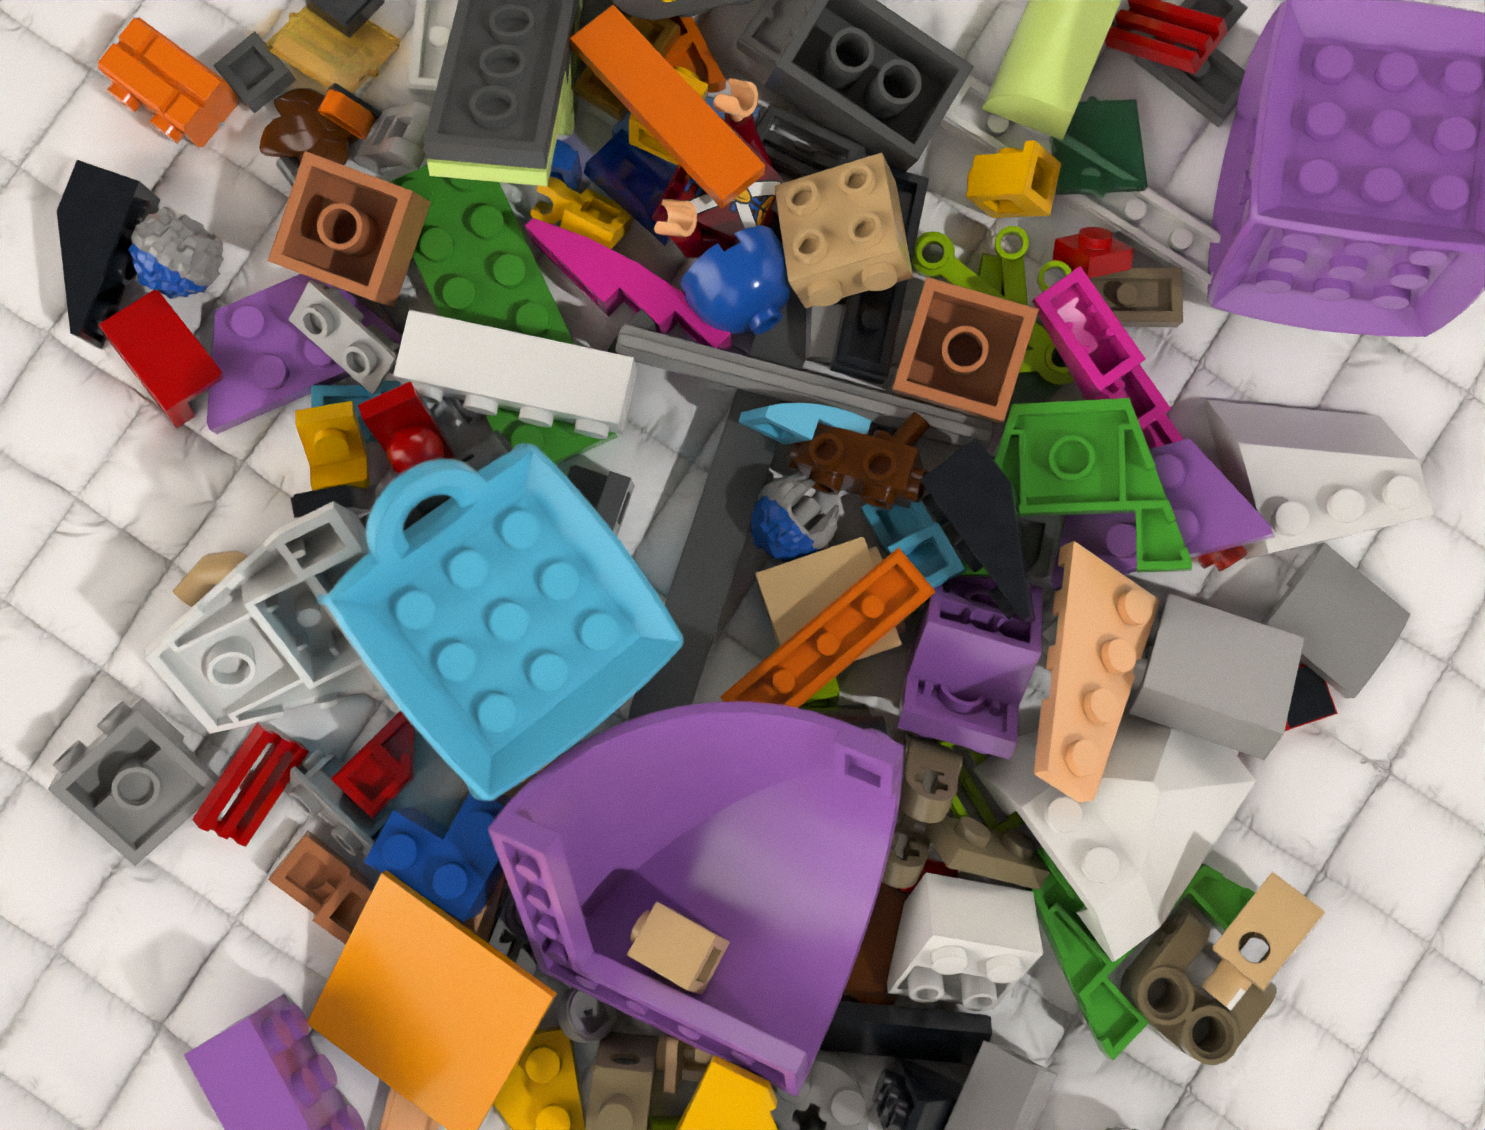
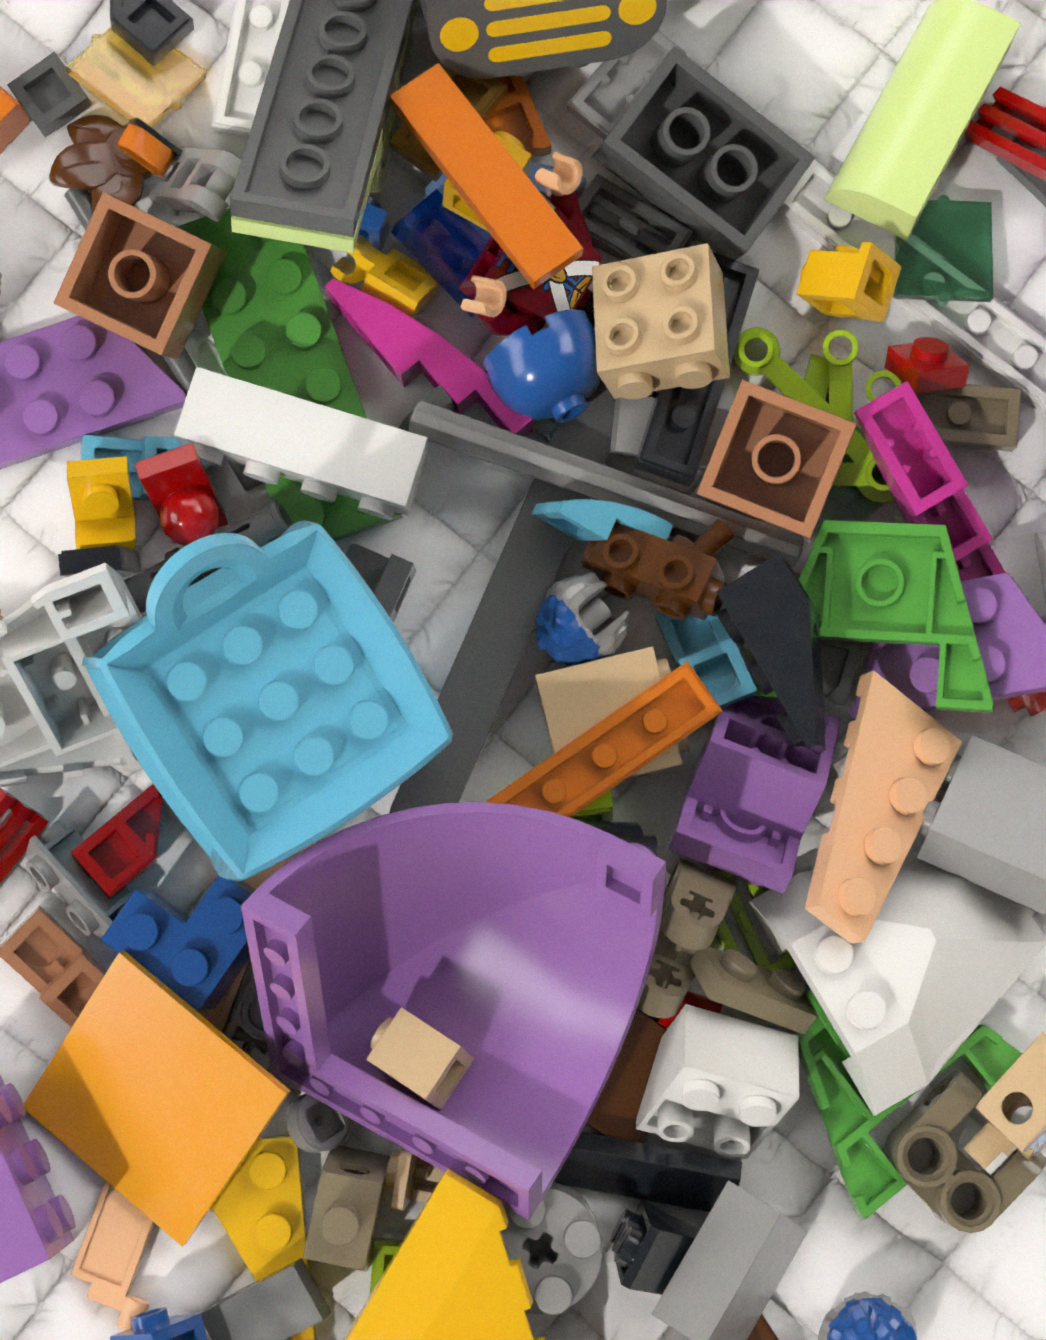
camera: 10 degrees right, 0 degrees up
(338, 331) = (116, 379): light grey hinge -> none

